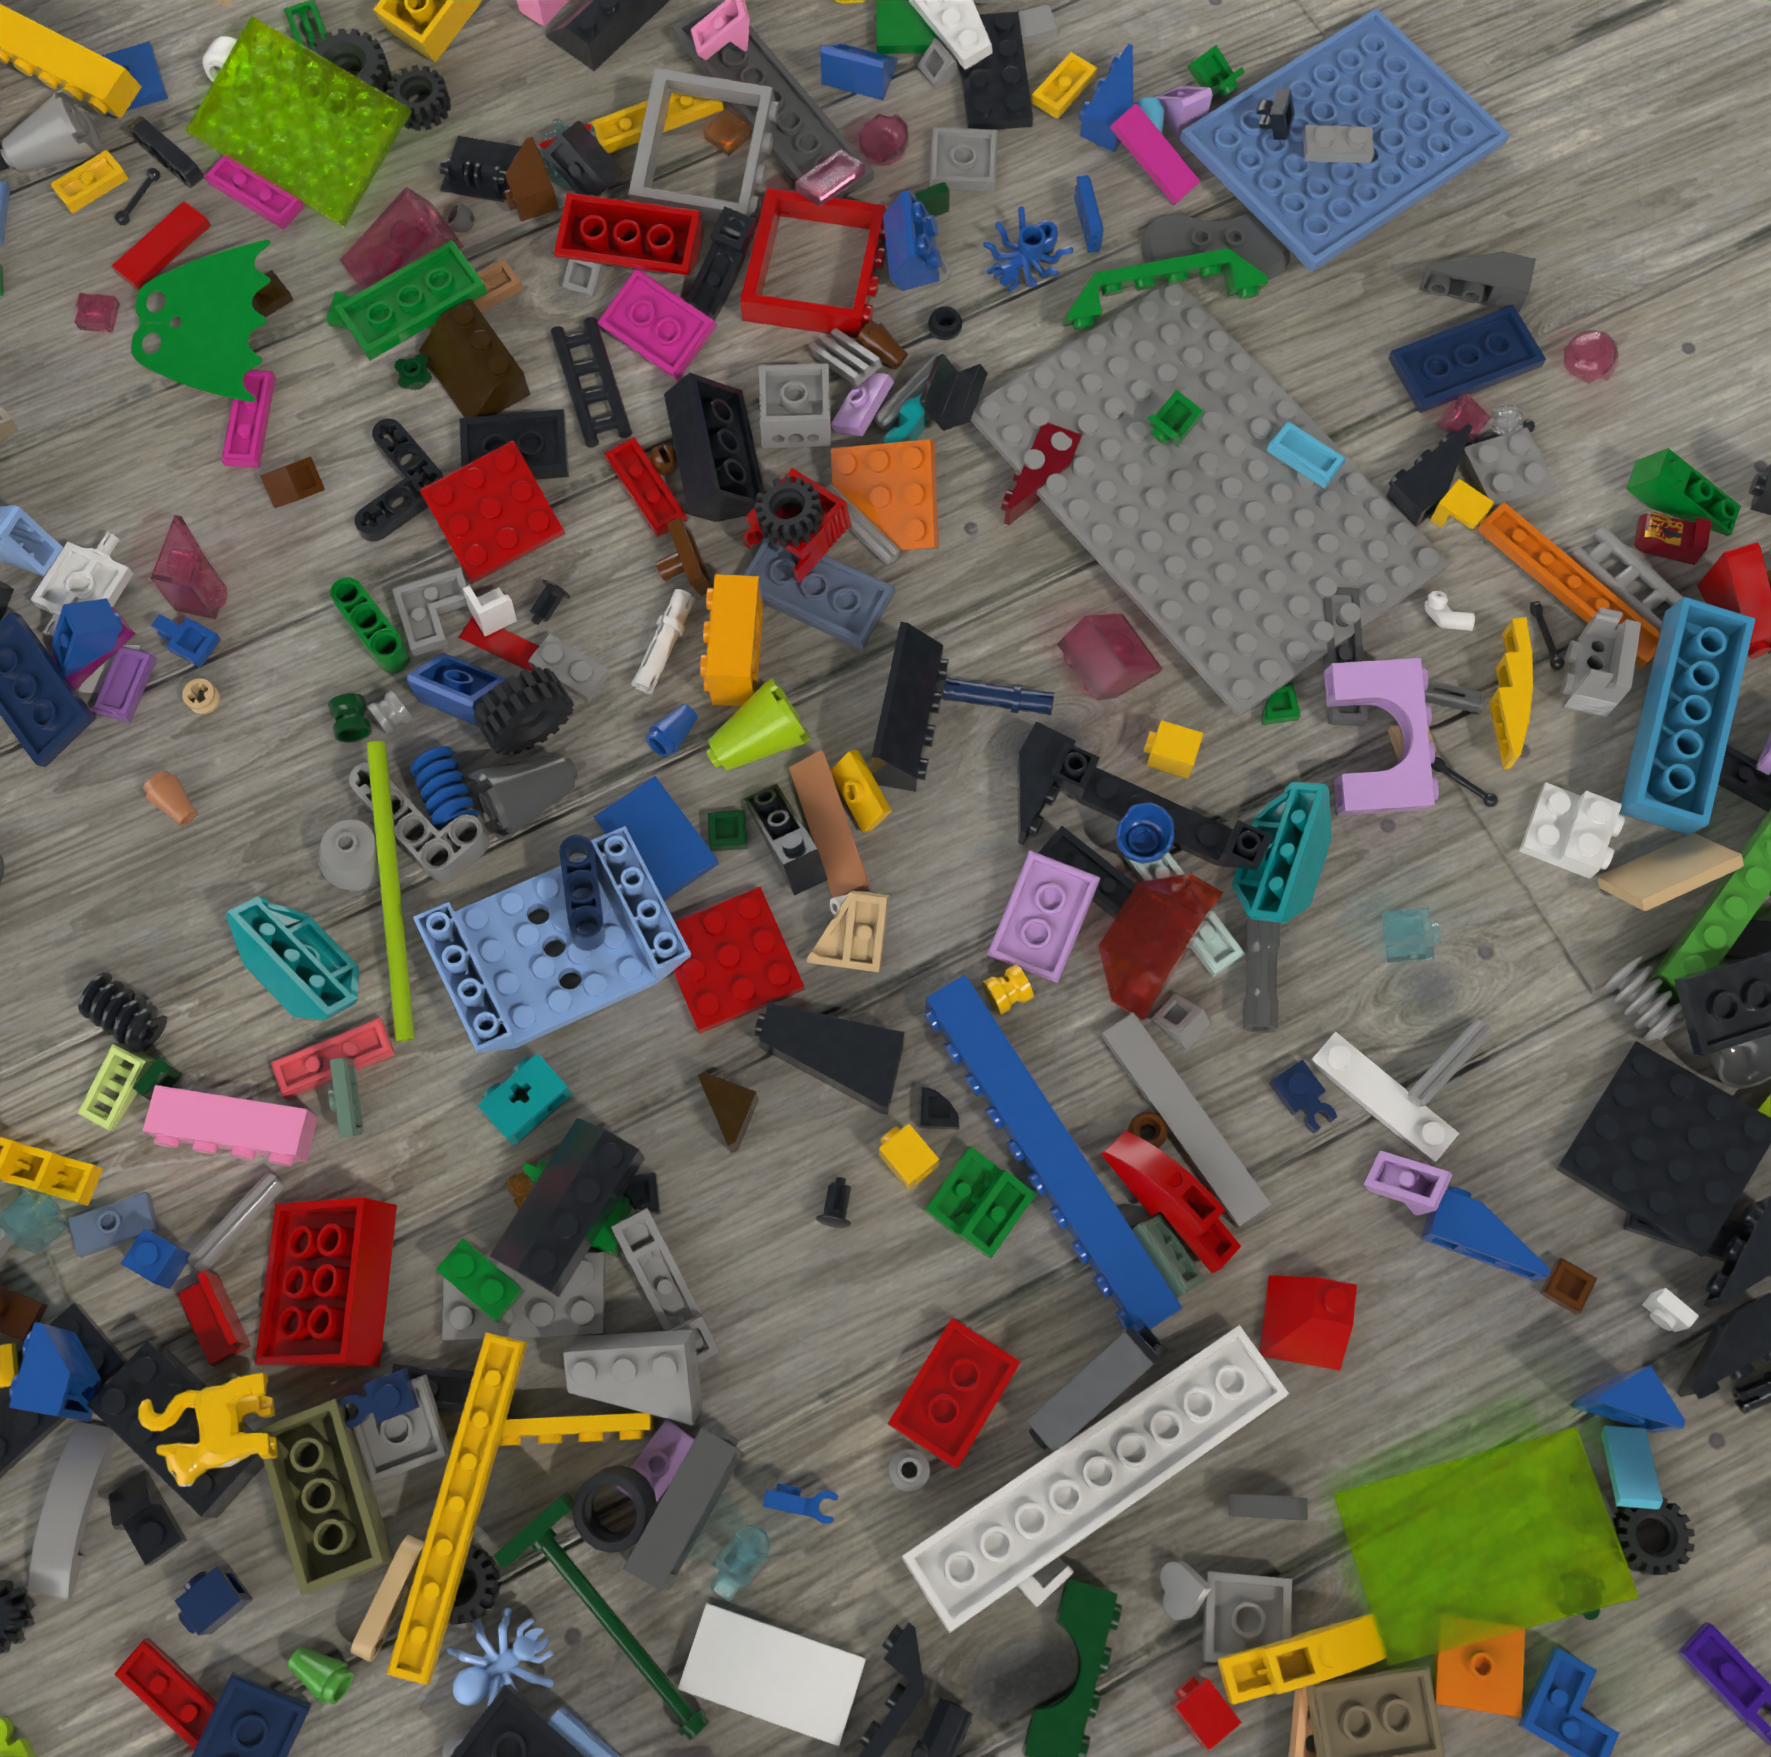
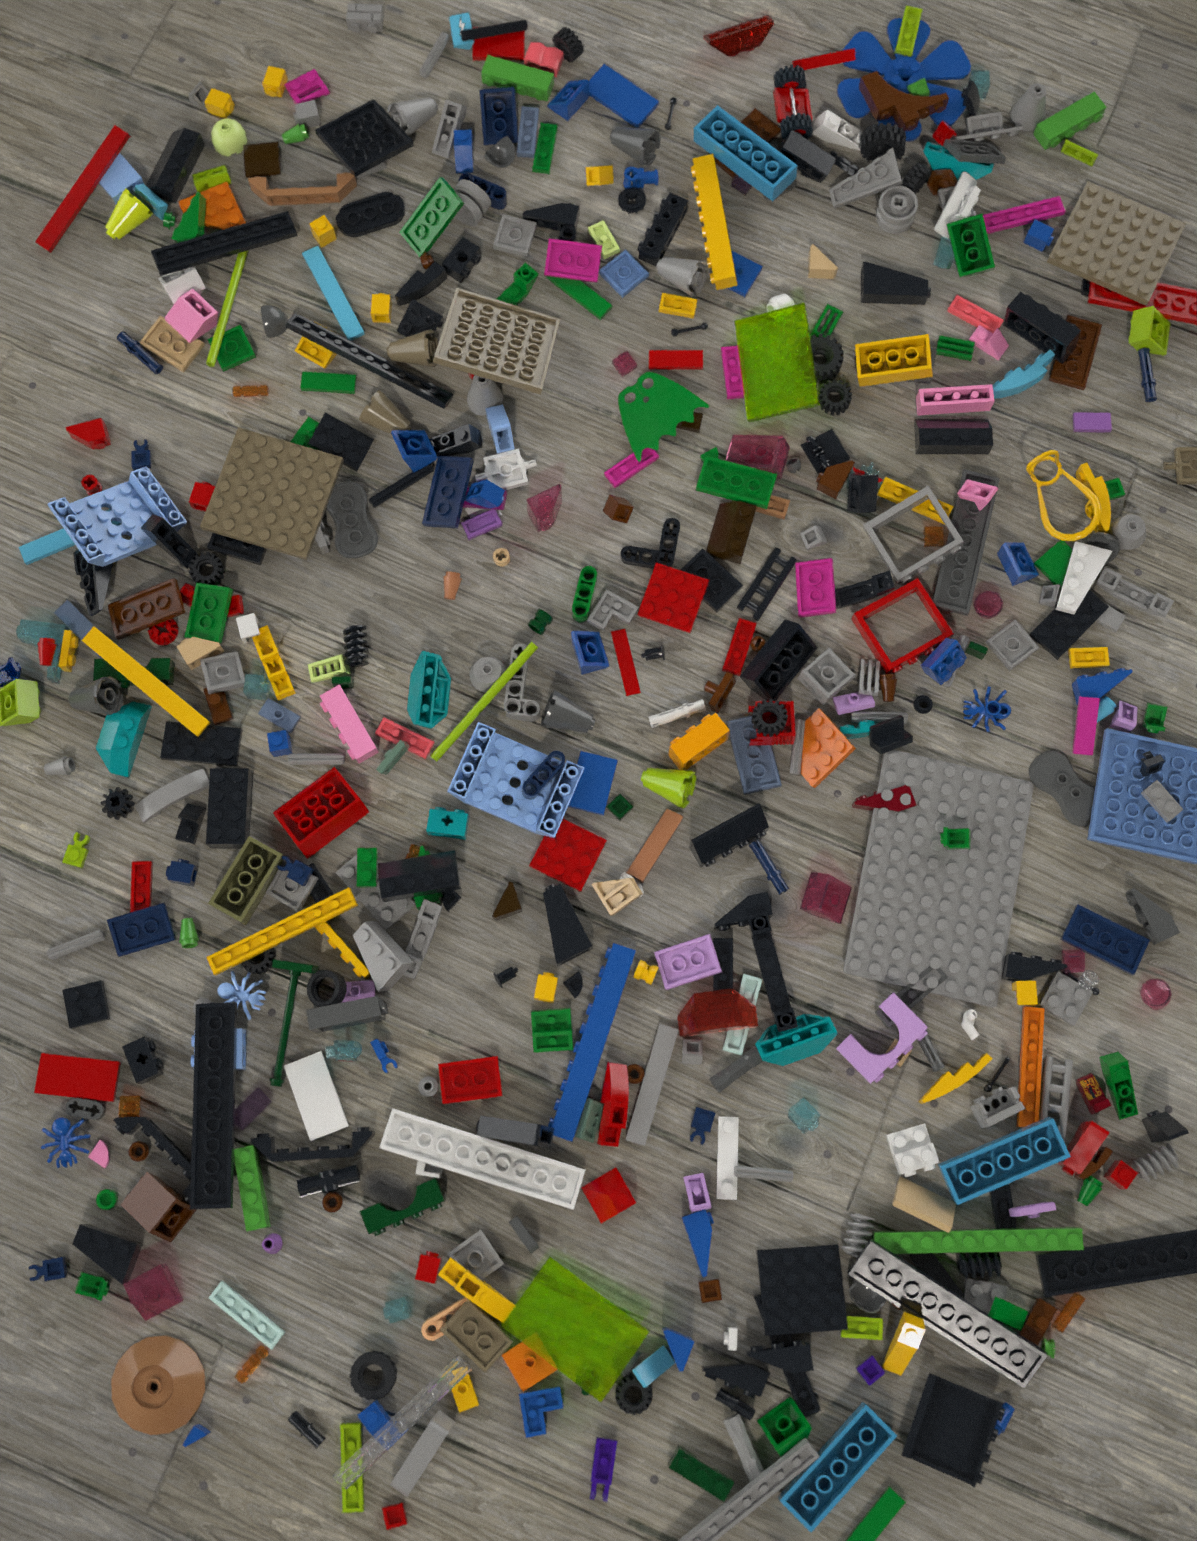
camera: 50 degrees right, 5 degrees up
(55, 1375) = (210, 749): blue slope -> none
(165, 152) = (717, 322): black beam -> none
(187, 641) = (519, 532): blue plate -> none
(214, 1319) = (276, 783): red panel -> none
(221, 1426) = (240, 823): yellow animal -> none
(388, 1600) = (231, 935): tan beam -> none
(390, 713) = (555, 635): light grey wheel -> none
(414, 380) = (707, 515): dark green plate -> none
(441, 786) = (540, 683): blue piece -> none
(490, 610) = (631, 634): white panel -> none
(523, 711) = (597, 687): black tyre -> none
(571, 667) = (634, 686): light grey plate -> none
(629, 234) = (843, 543): red slope -> none
(670, 732) = (642, 749): blue cone -> none
(786, 839) = (634, 833): black slope -> none
(830, 178) = (946, 600): clear pink tile -> none
(860, 791) = (679, 845): yellow plate -> none
(1088, 213) = (1031, 720): blue tile -> none
(1145, 833) = (755, 974): blue hair -> none
(1173, 749) = (806, 956): yellow brick -> none
(1183, 1590) = (467, 1225): light grey tile -> none
(1239, 277) = (1055, 812): green slope -> none
(1281, 706) = (866, 986): green tile -> none
(1306, 454) = (992, 906): medium azure tile -> none
(1489, 799) = (898, 1106): black hinge -> none

